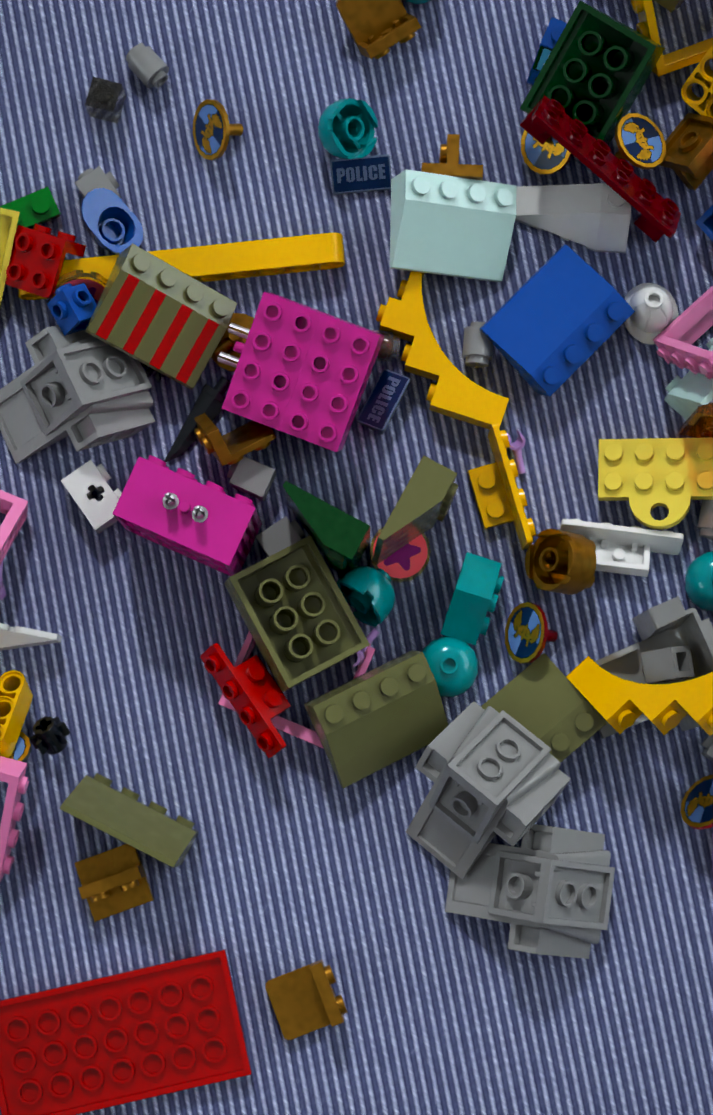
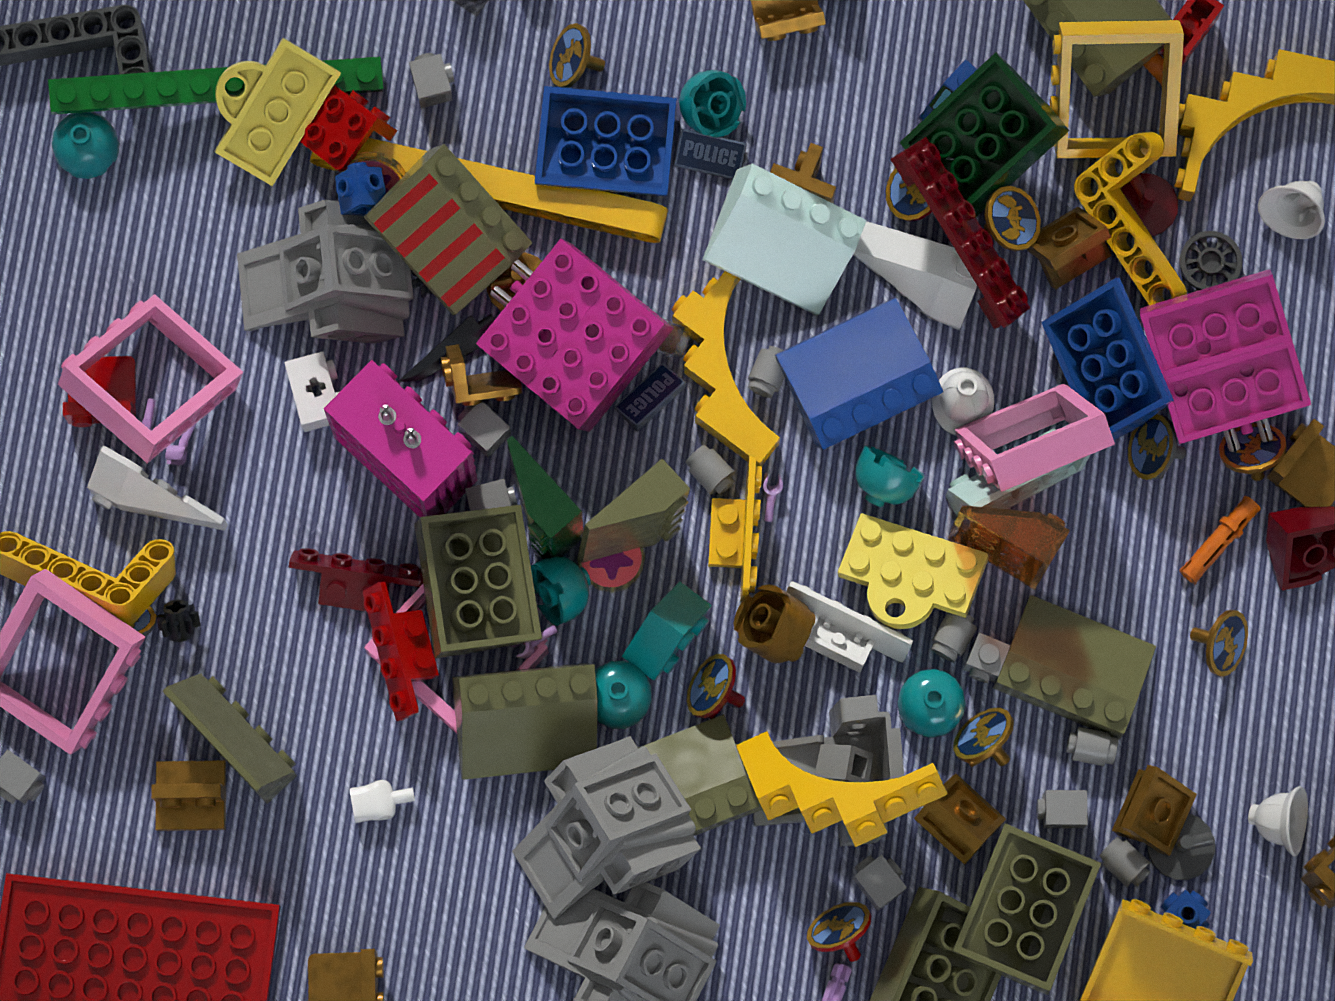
camera: 15 degrees right, 5 degrees down
(111, 220) = (432, 113): blue piece -> none
(182, 647) = (347, 578): none -> dark red bracket
(269, 193) = (605, 141): none -> blue slope
(276, 830) = (377, 800): none -> white piece
(458, 447) = (710, 470): none -> light grey brick
(610, 401) = (886, 477): none -> teal cylinder

